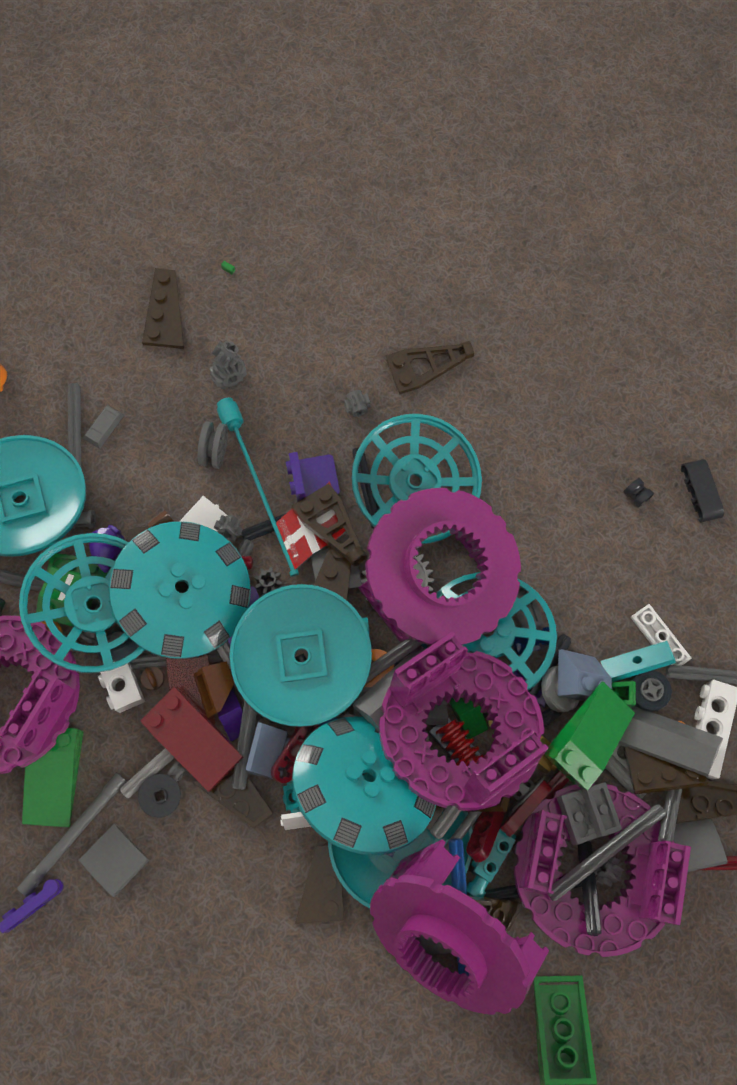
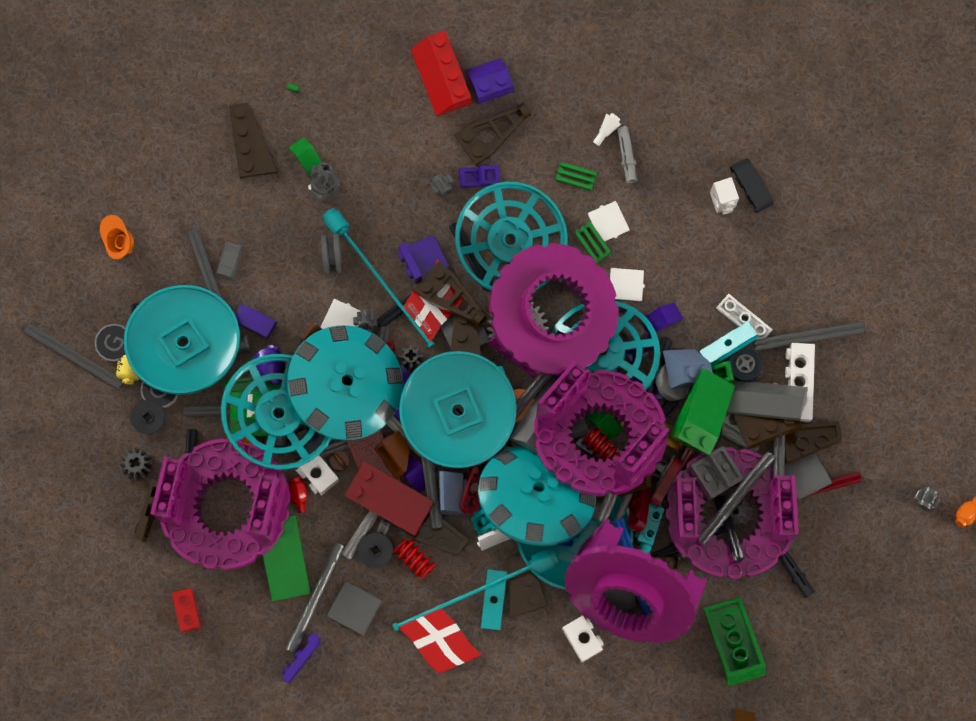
camera: 15 degrees left, 5 degrees up
(93, 703) = (298, 493): none -> red plant
(107, 497) = (255, 321): none -> dark purple slope
(201, 818) = (414, 558): none -> red piece
(204, 924) = (441, 638): none -> flag
(217, 332) = (305, 155): none -> green slope
(276, 911) = (493, 612): none -> teal tile
(381, 992) = (572, 632): none -> white brick
(389, 290) = (441, 73): none -> red slope
(396, 405) = (479, 176): none -> dark purple slope
(439, 311) = (490, 81): none -> dark purple slope
(495, 417) = (577, 169): none -> green tile
(501, 490) = (584, 229): none -> green tile
(530, 490) = (608, 221): none -> white piece
(536, 563) = (627, 283): none -> white piece
(557, 387) = (610, 124): none -> white cone
(567, 611) = (664, 317): none -> dark purple slope
(569, 430) = (627, 154): none -> light grey pin
(634, 489) = (695, 198): black wheel -> none
(659, 969) = (796, 574): none -> black pin
(670, 492) = (724, 196): none -> white brick

